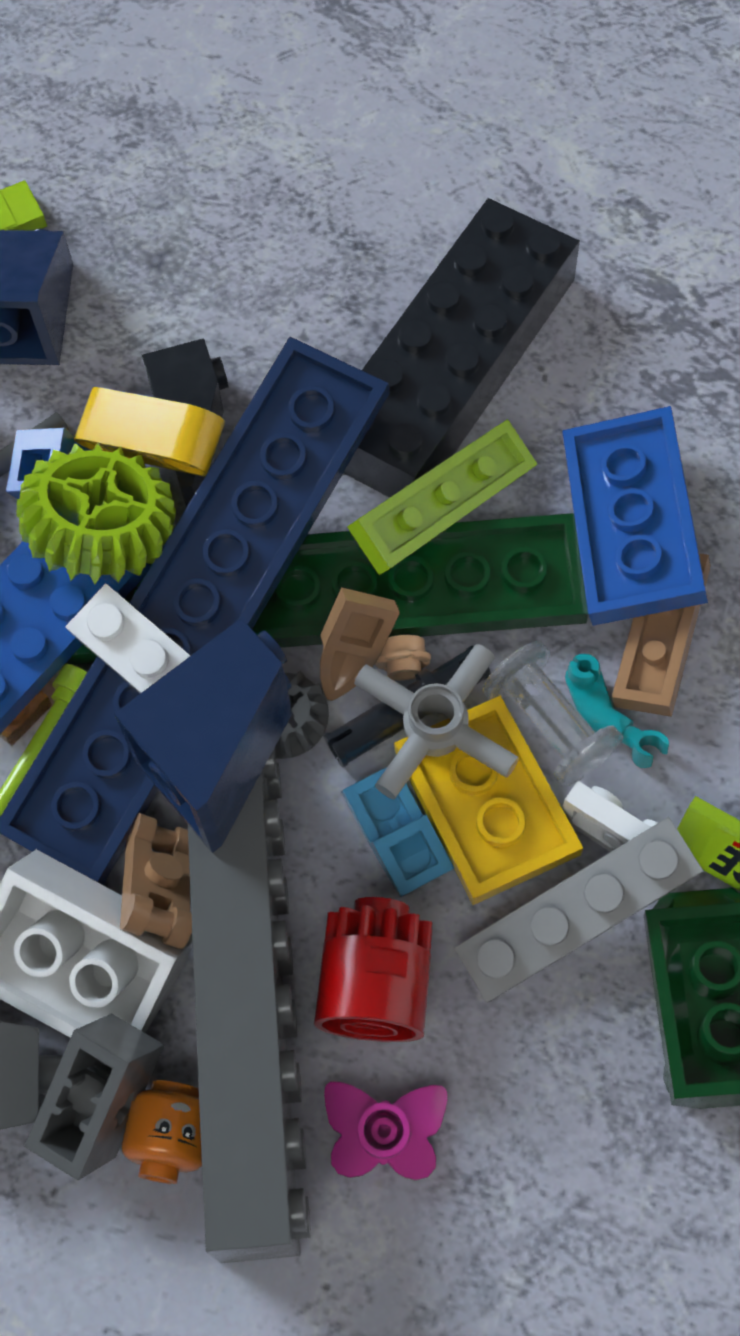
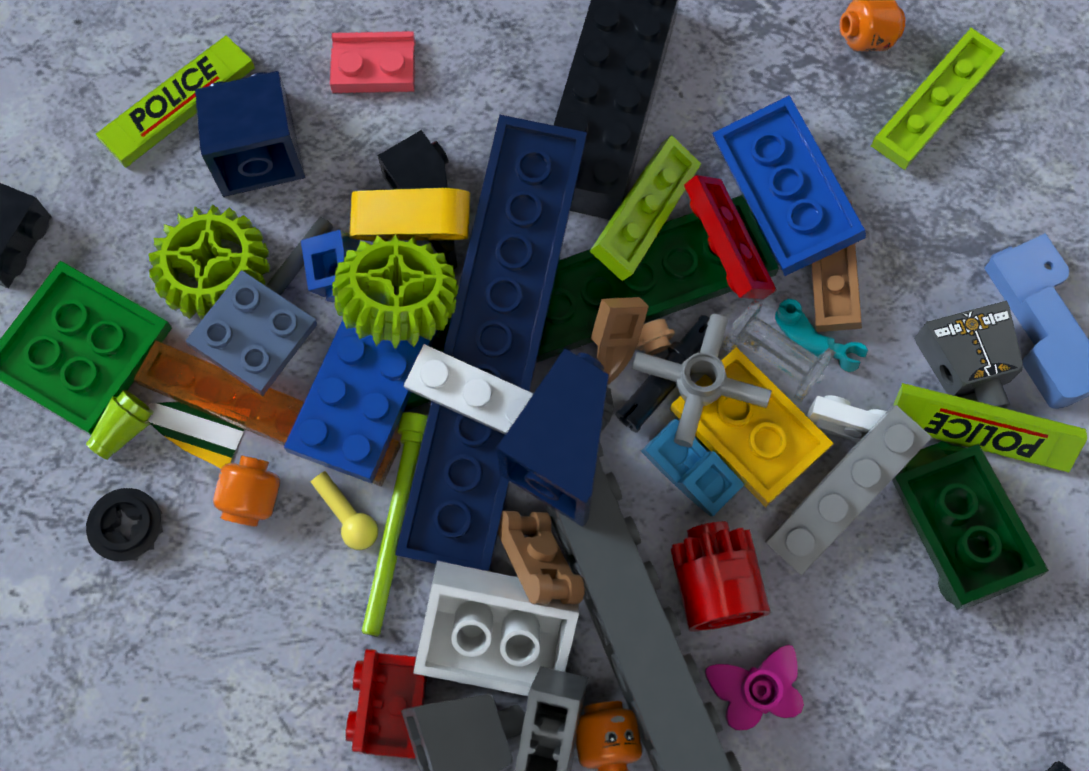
camera: 20 degrees left, 5 degrees up
(184, 251) = (372, 62): none -> coral plate
(533, 559) = (729, 238): none -> red plate

